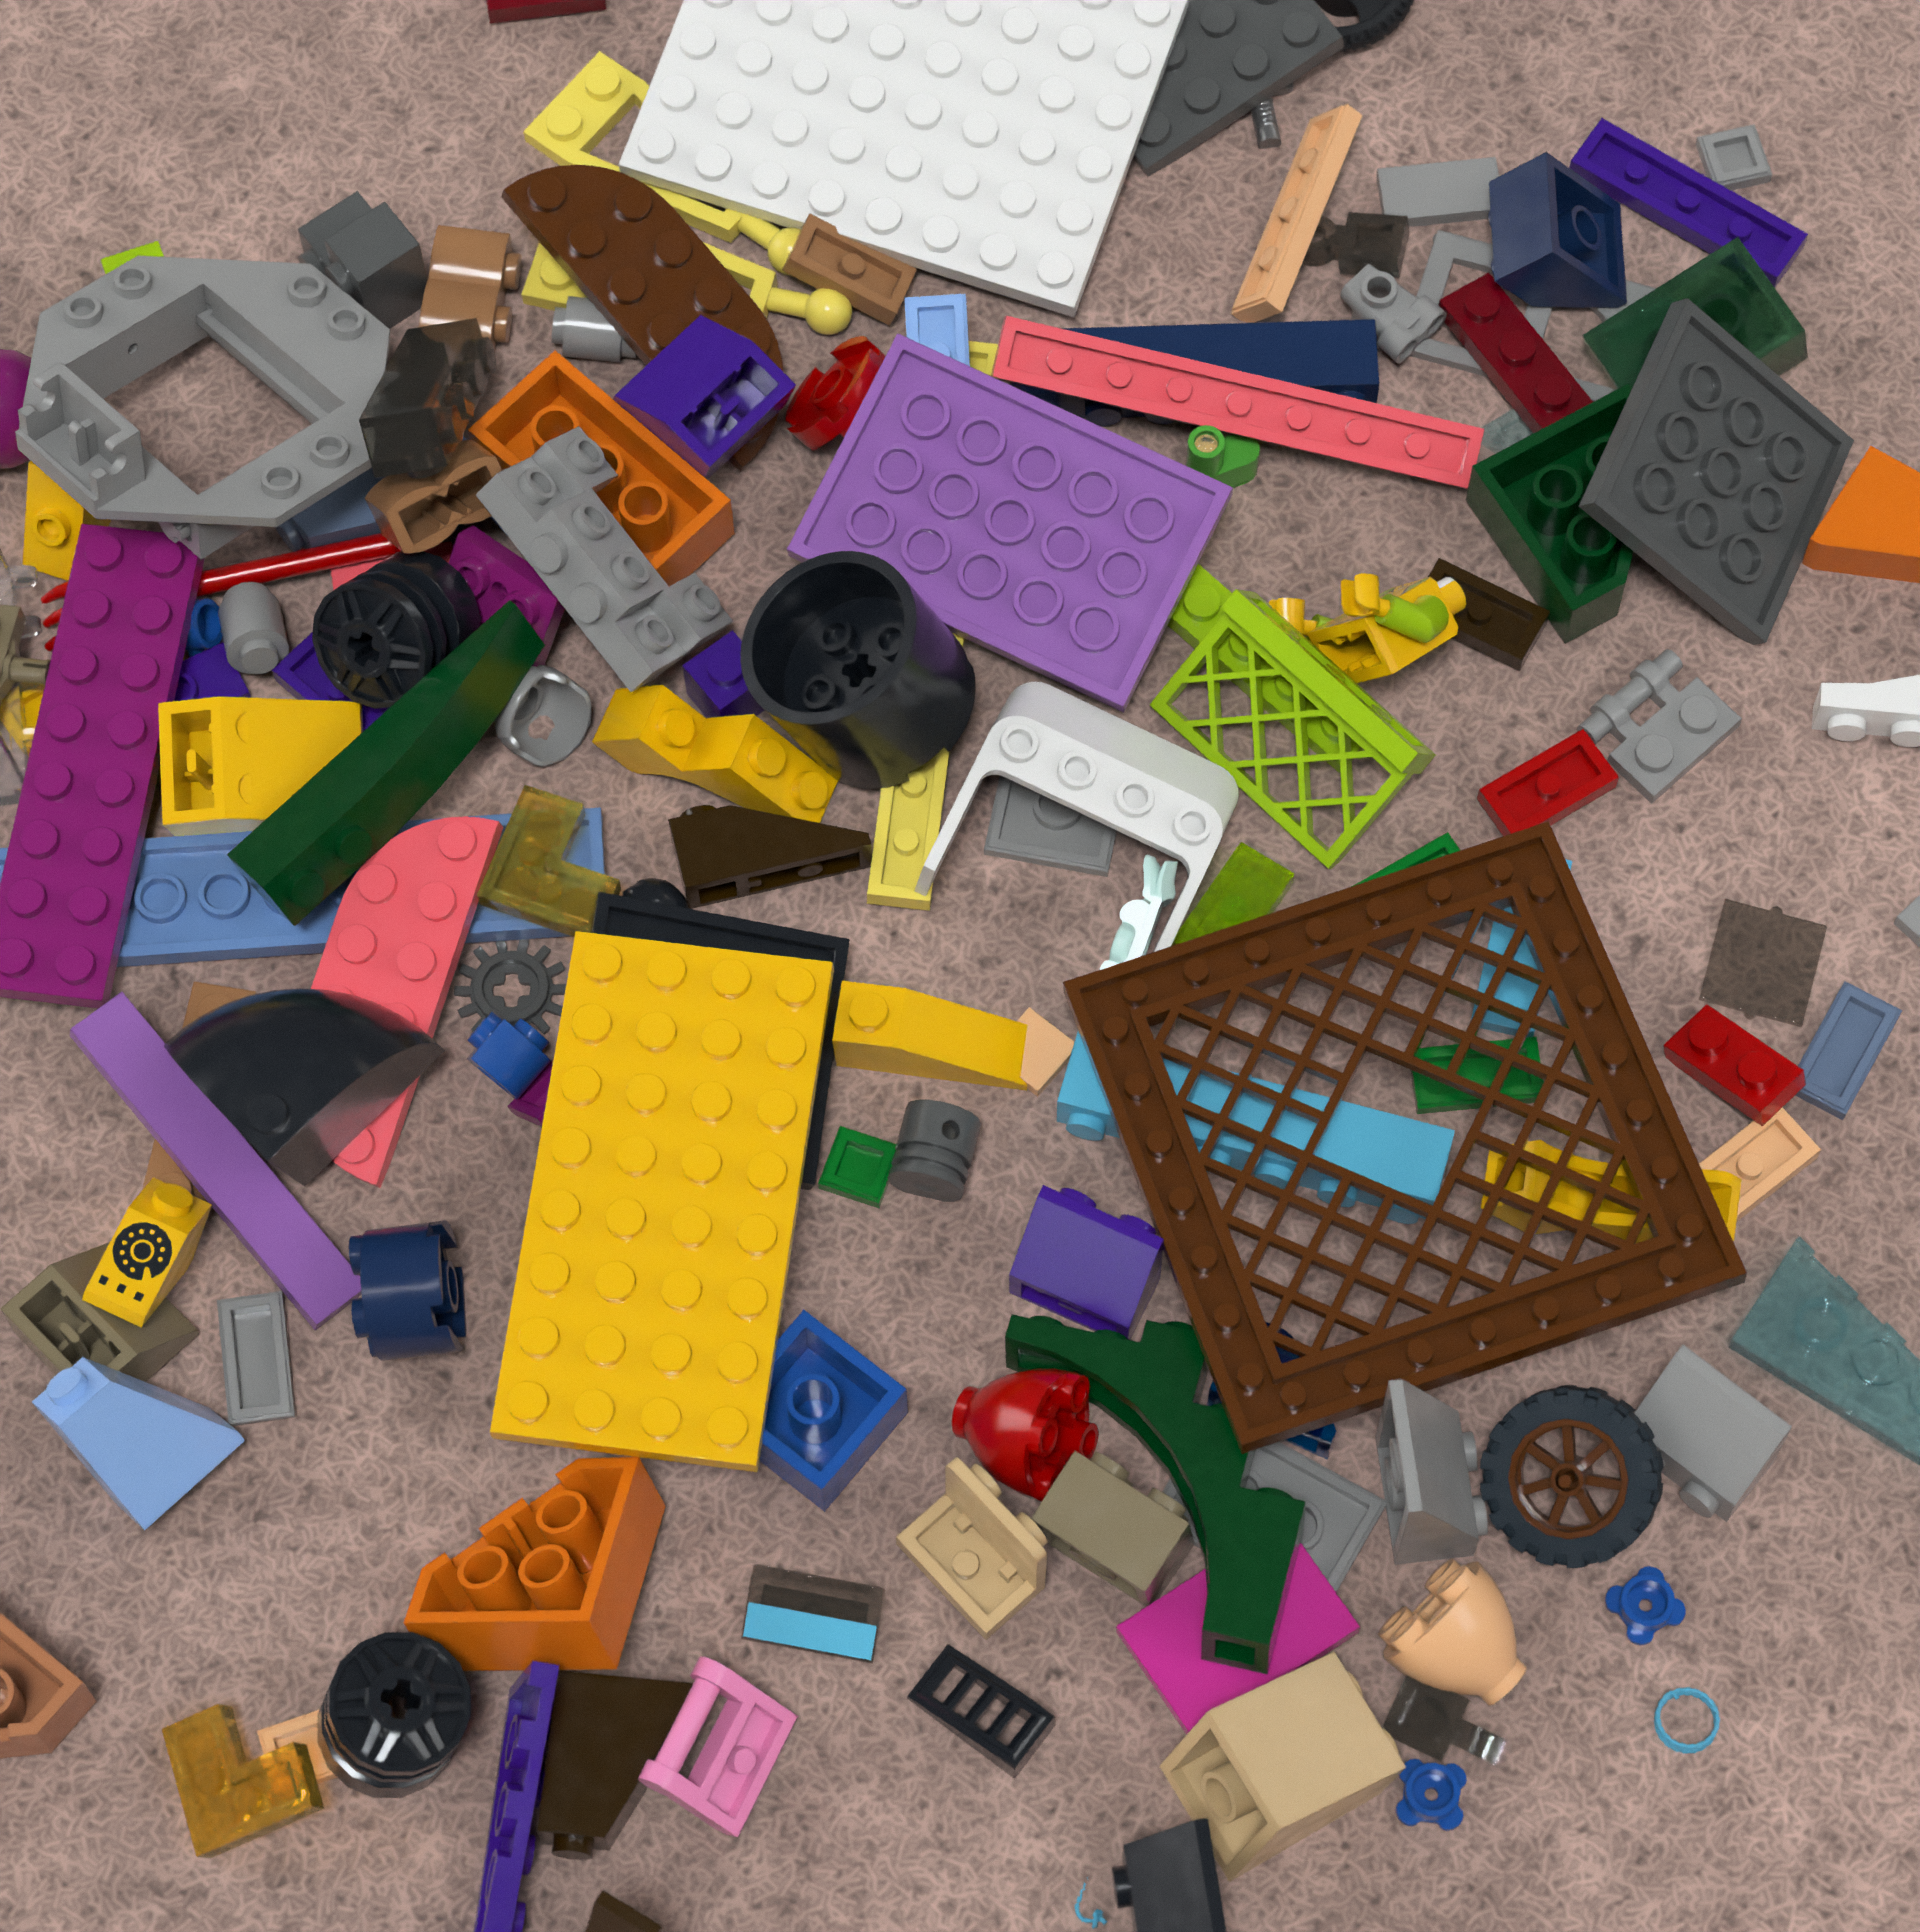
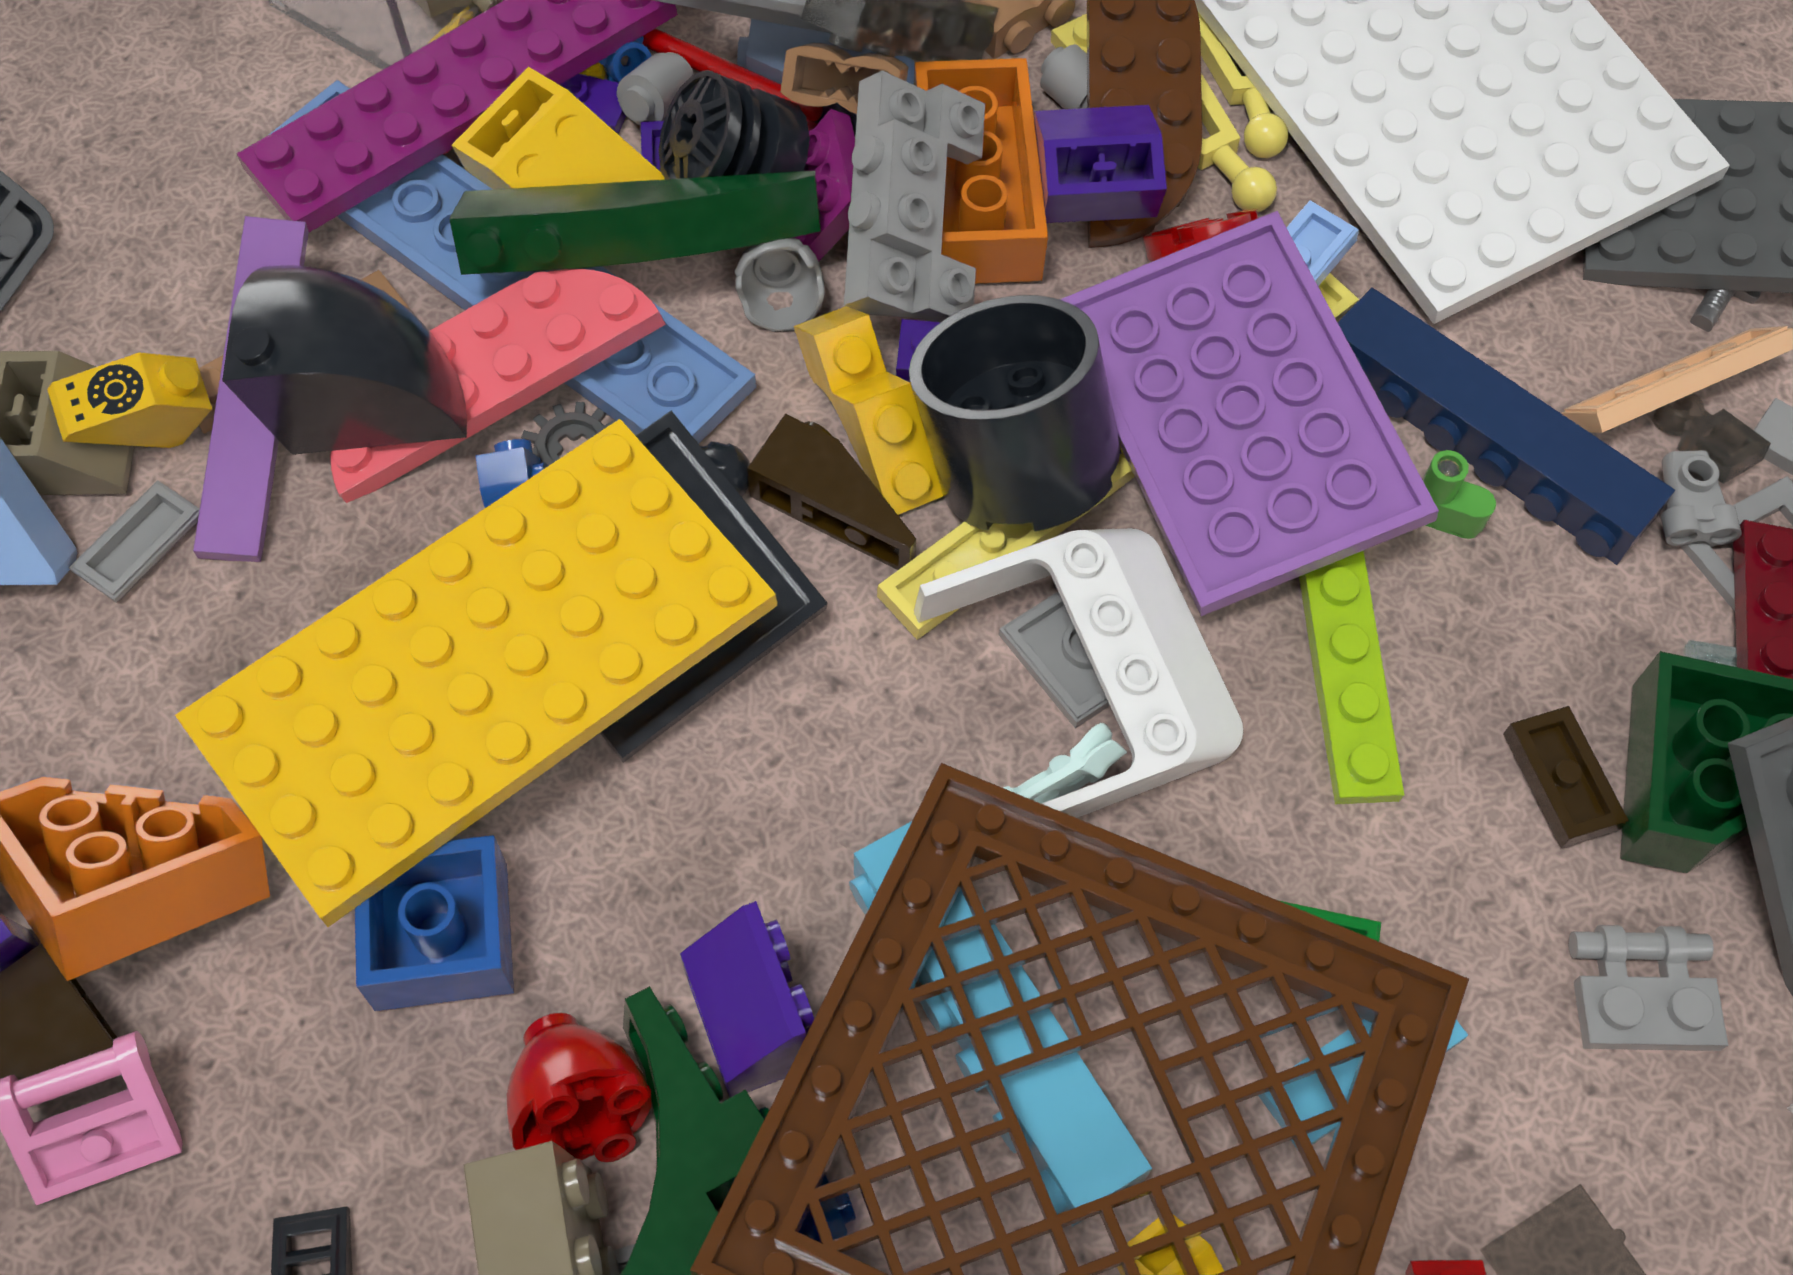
camera: 40 degrees right, 5 degrees down
(408, 1291) = (261, 575): dark blue brick -> none
(531, 869) = (658, 366): clear yellow plate -> none
(813, 1613) = (278, 1084): slope -> none
(858, 1167) = (673, 777): green tile -> none
(861, 274) = (1297, 175): medium nougat plate -> none
(926, 1037) = (816, 725): yellow slope -> none
(934, 1156) = (716, 814): dark grey piece -> none
(977, 1549) = (425, 1144): tan bracket -> none
(1045, 1052) = (884, 803): light nougat tile -> none
(1236, 402) = (1507, 465): coral plate -> none
(1242, 891) = (1167, 822): clear neon green plate -> none
(1328, 689) = (1379, 725): lime fence -> none
(1380, 630) = (1469, 714): torso -> none
(1435, 1096) = (1216, 1135): green tile -> none
(1548, 785) = (1504, 957): red plate -> none

